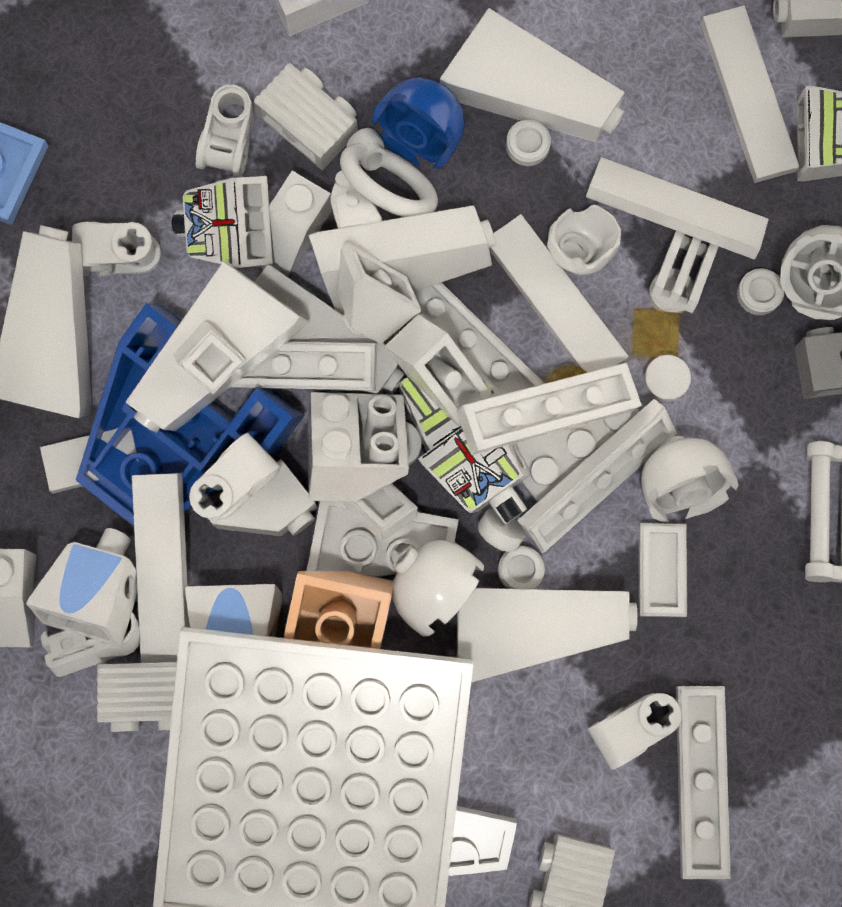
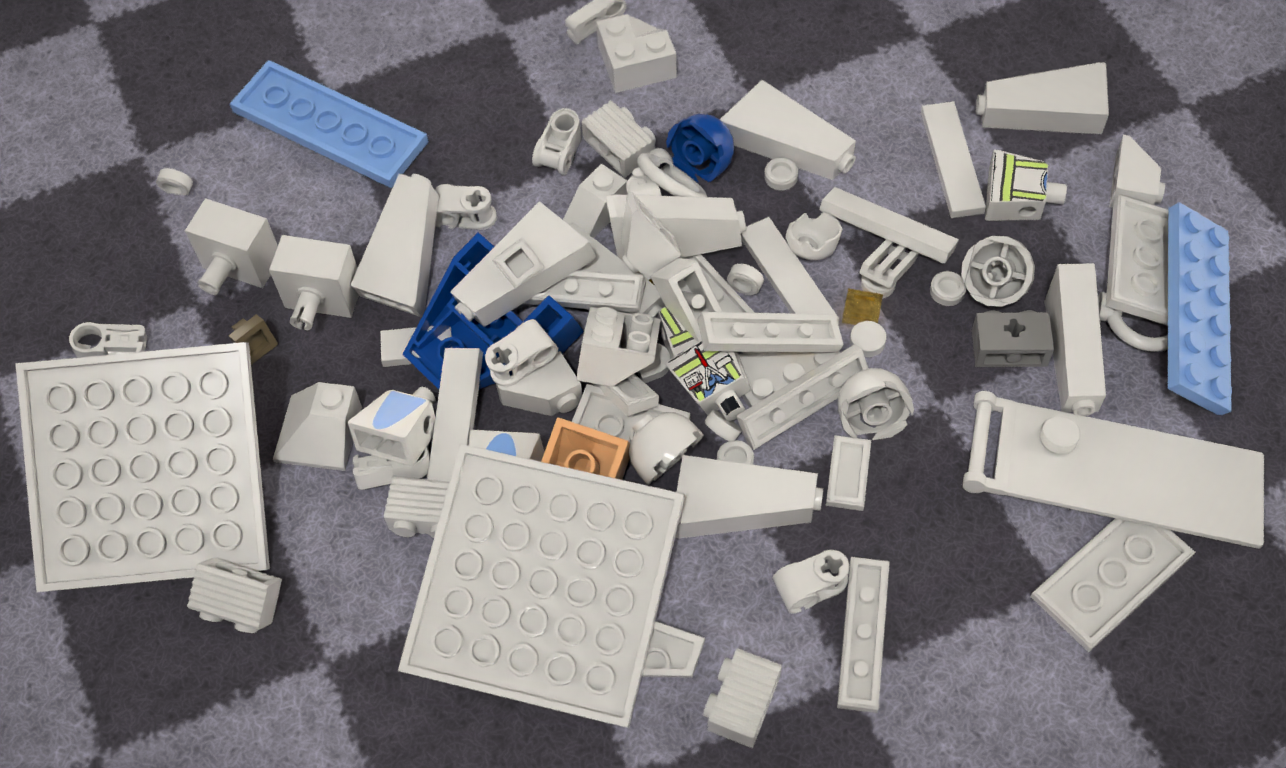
camera: 15 degrees right, 20 degrees down
(227, 222) = (553, 183): white torso -> none
(502, 315) = (745, 279): none -> white tile

